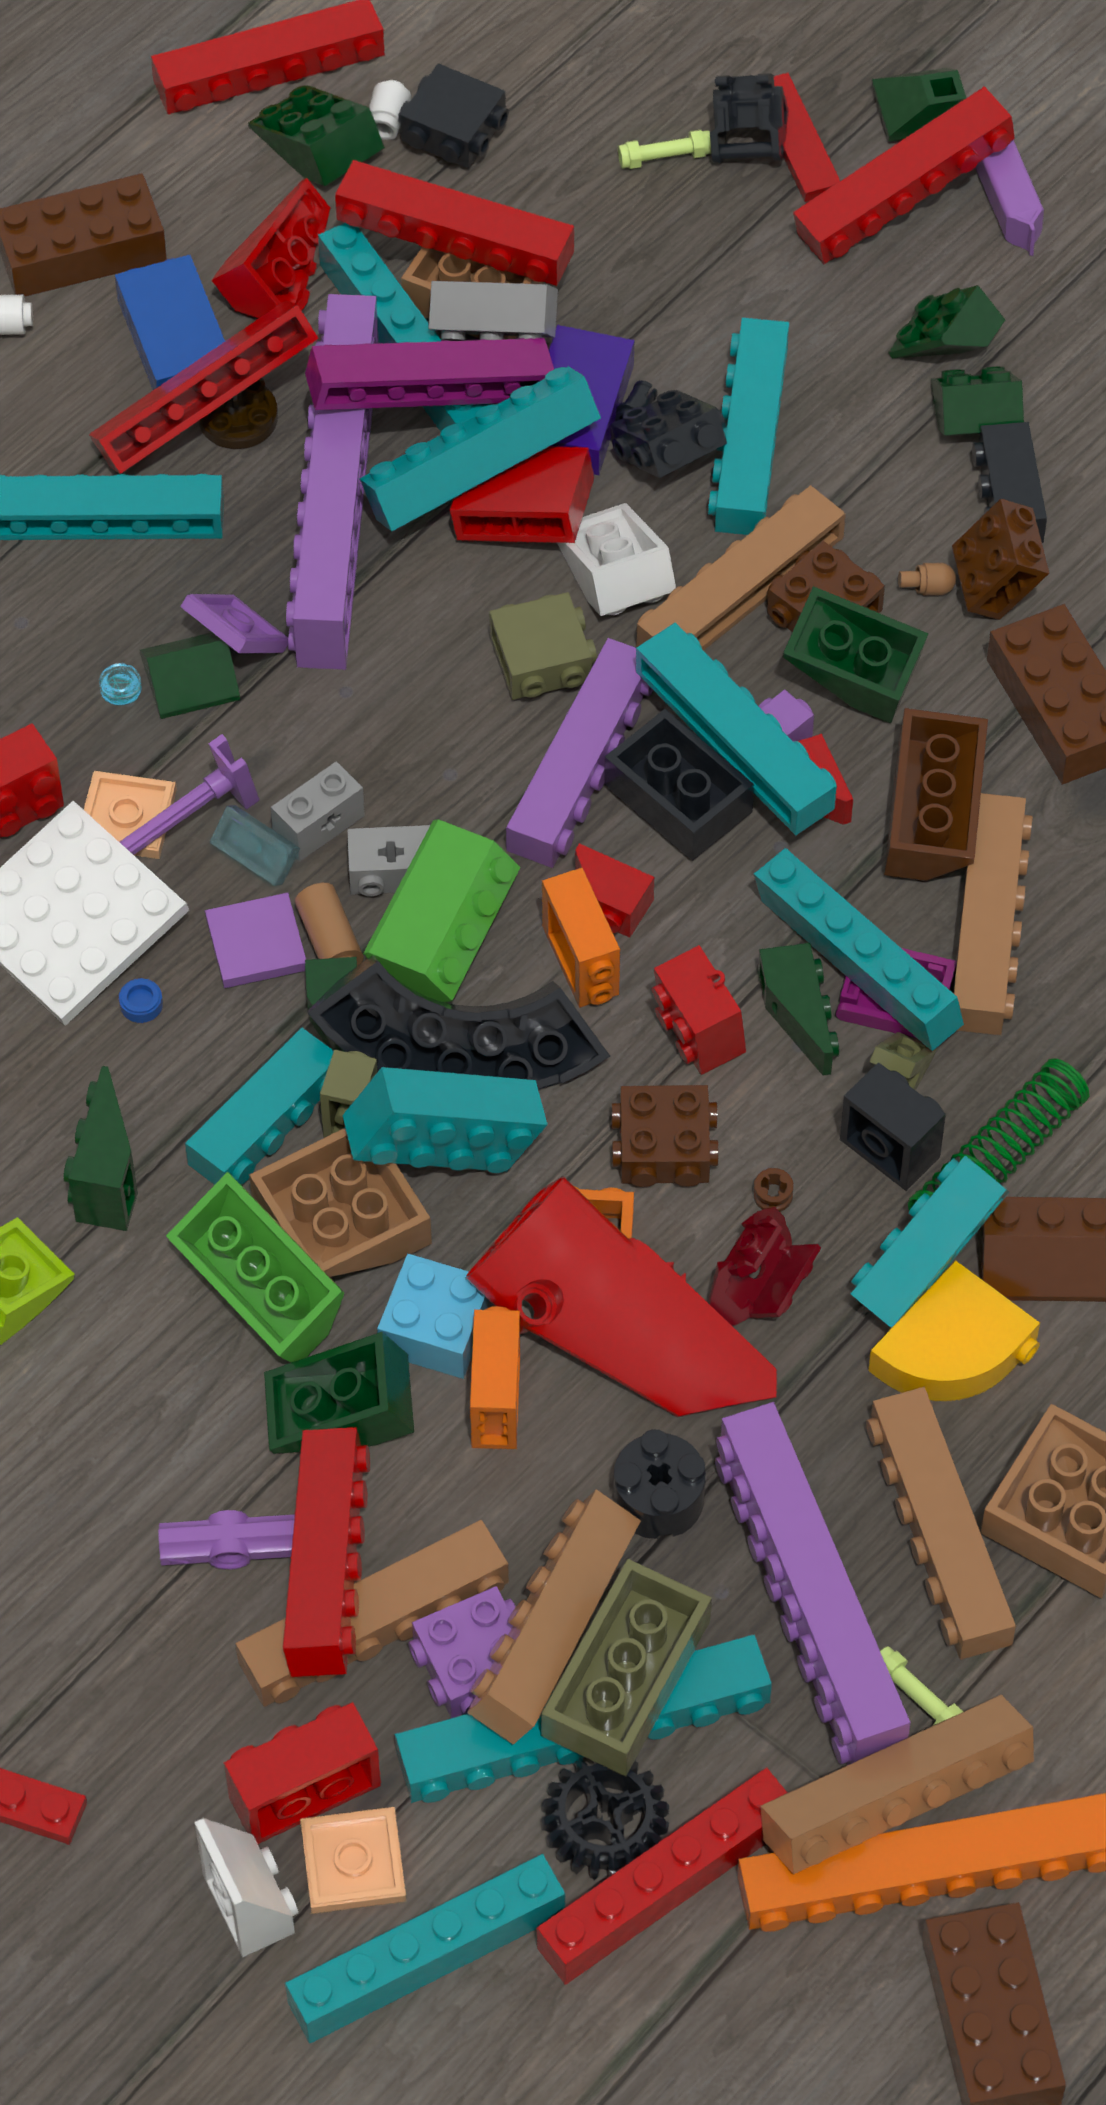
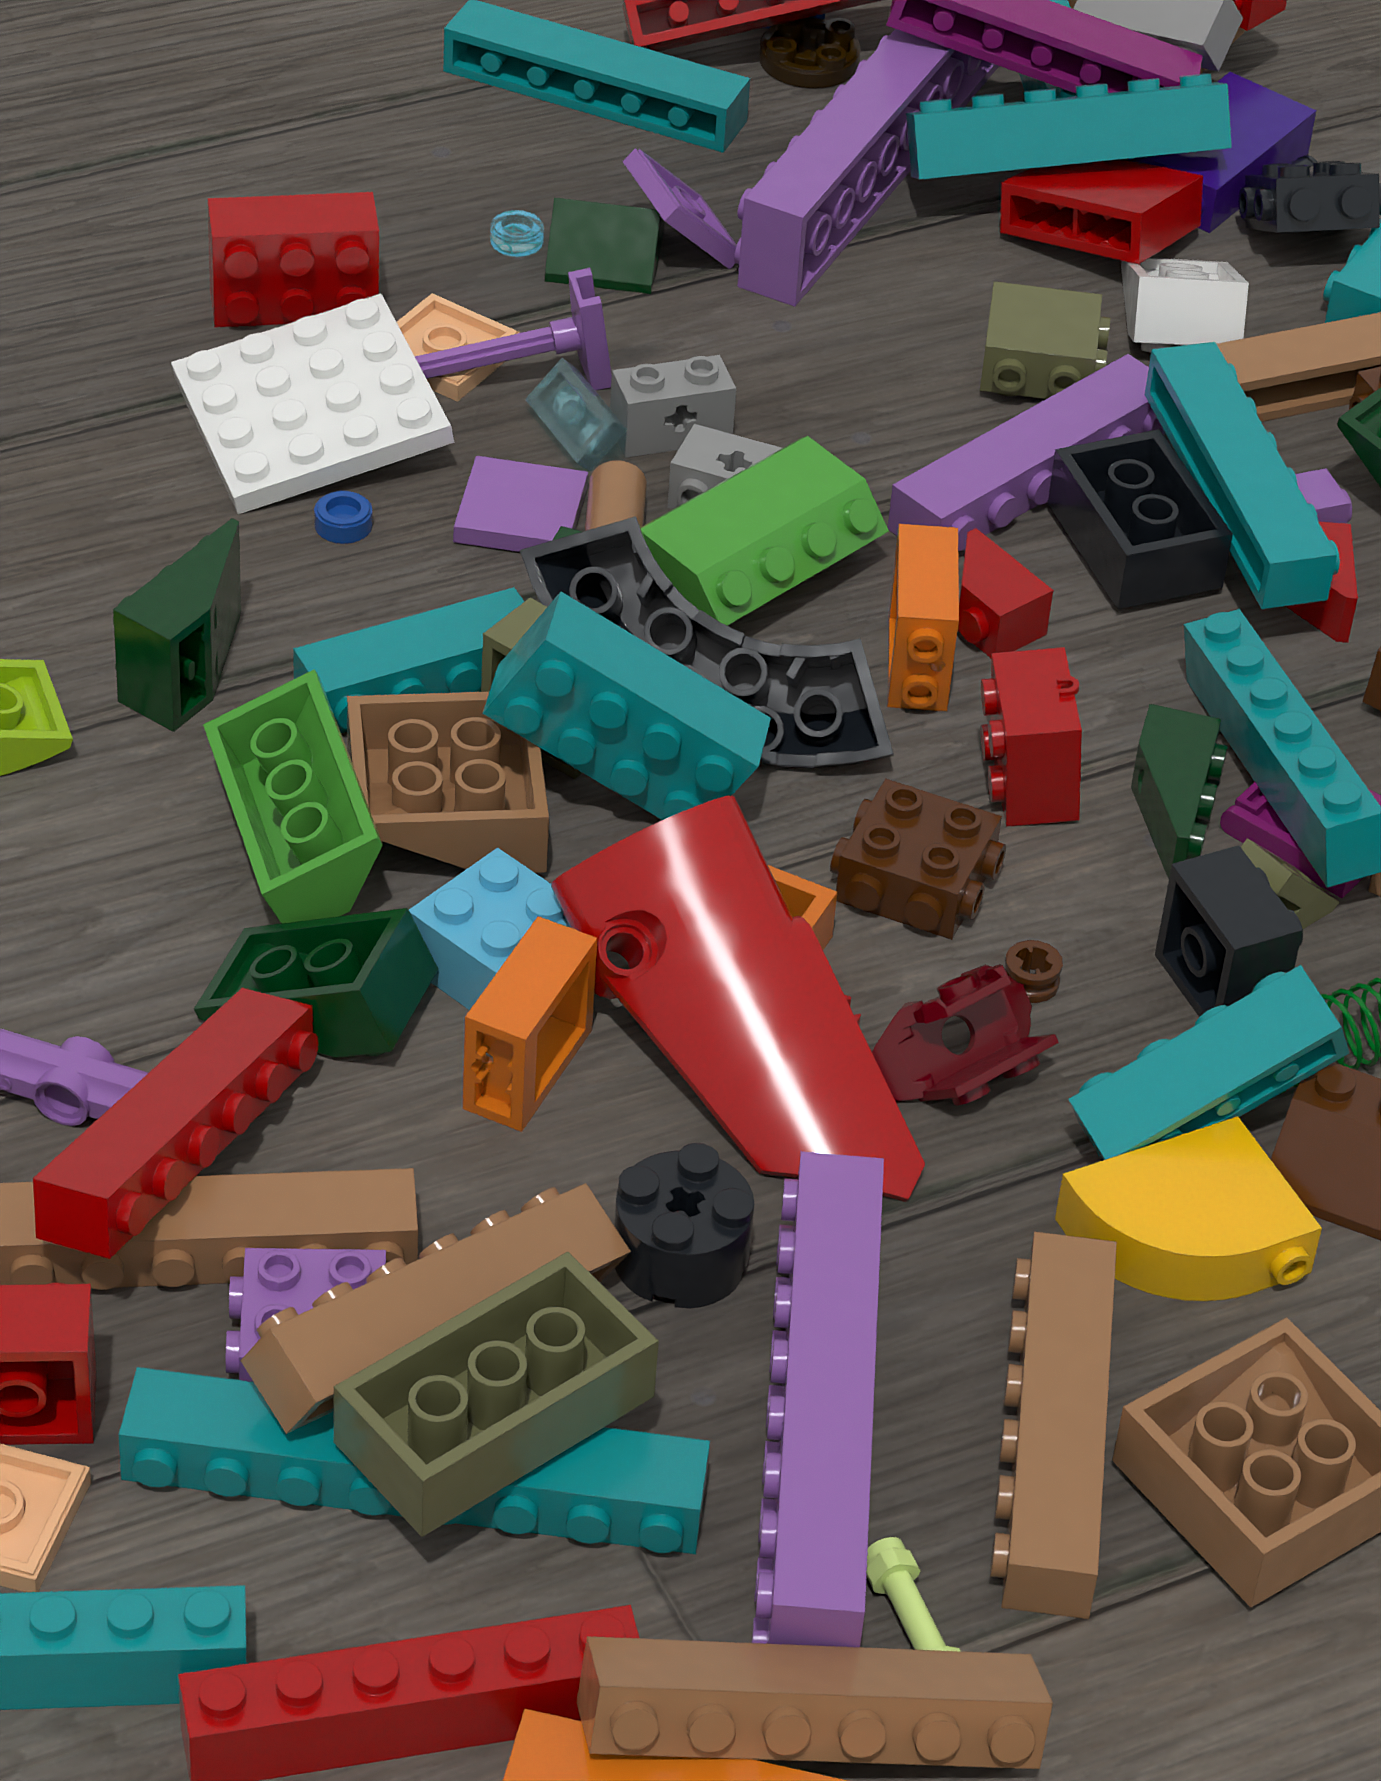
camera: 20 degrees right, 15 degrees down
(573, 1836) = (327, 1575): black gear -> none

